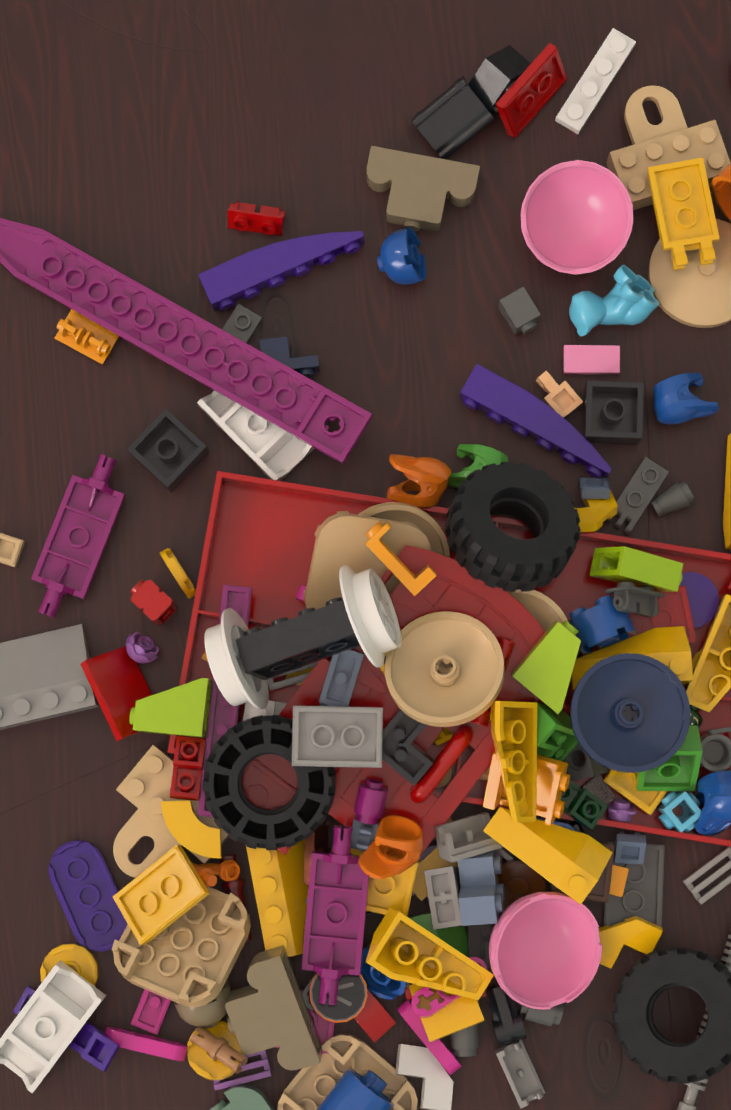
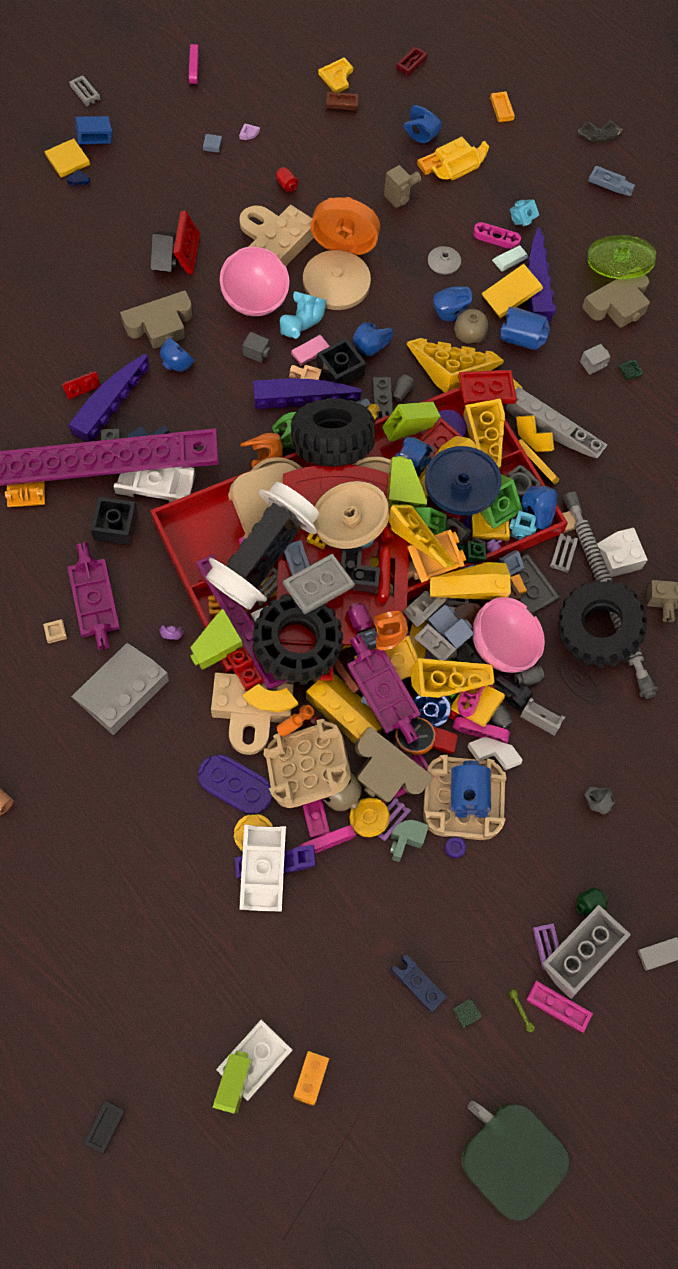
camera: 45 degrees left, 15 degrees down
(117, 687) = (174, 659): red tile -> none
(153, 601) = (161, 600): red brick -> none
(160, 895) = (278, 746): yellow tile -> none
(178, 572) = (164, 581): yellow tile -> none
(219, 1049) = (371, 810): medium nougat pin -> none
(412, 582) = (293, 479): light orange panel -> none
(453, 118) = (154, 277): black piece -> none
(595, 81) = (215, 226): white plate -> none
(632, 932) = (546, 604): yellow tile -> none
(635, 599) = (422, 430): dark grey hinge -> none
(684, 210) = (307, 250): yellow tile -> none

